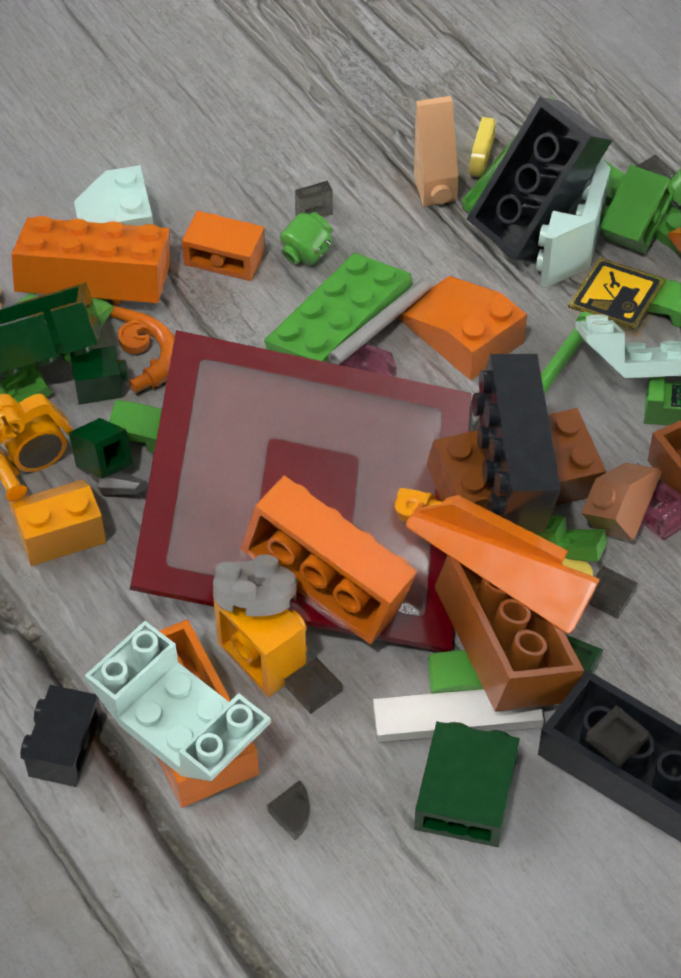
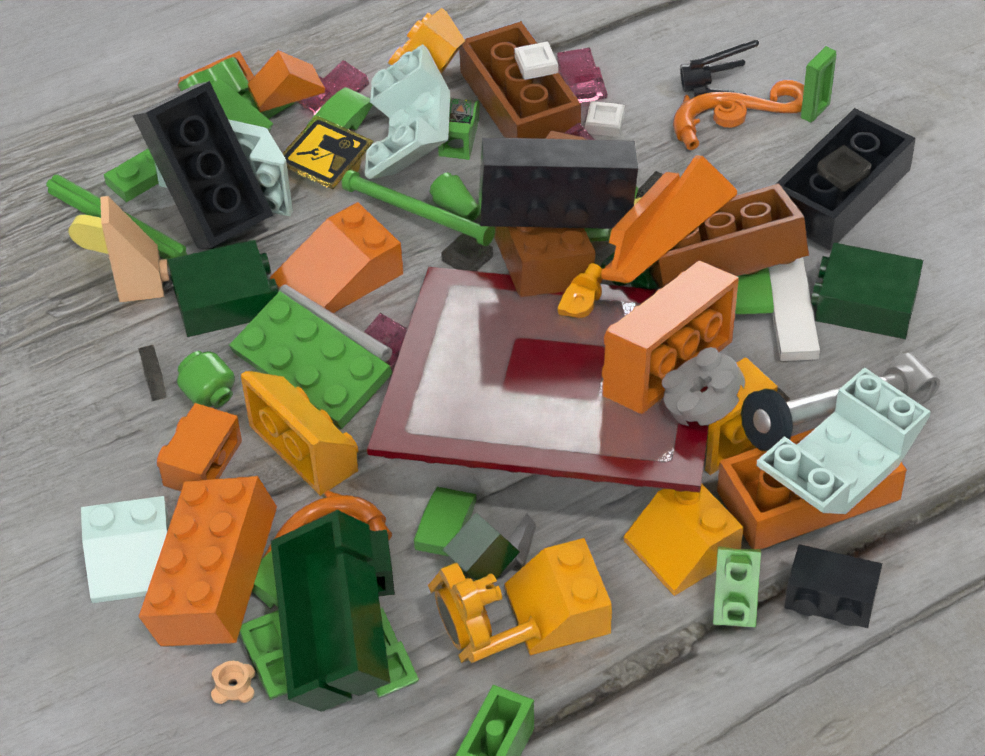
camera: 85 degrees left, 5 degrees down
(52, 647) = (736, 587): none -> bright green hips
(119, 611) = (681, 536): none -> light orange slope
(243, 297) = (299, 431): none -> light orange slope
(331, 813) = (770, 418): none -> piece
(423, 235) = (221, 287): none -> dark green brick
(573, 396) = (453, 196): none -> bright green cone

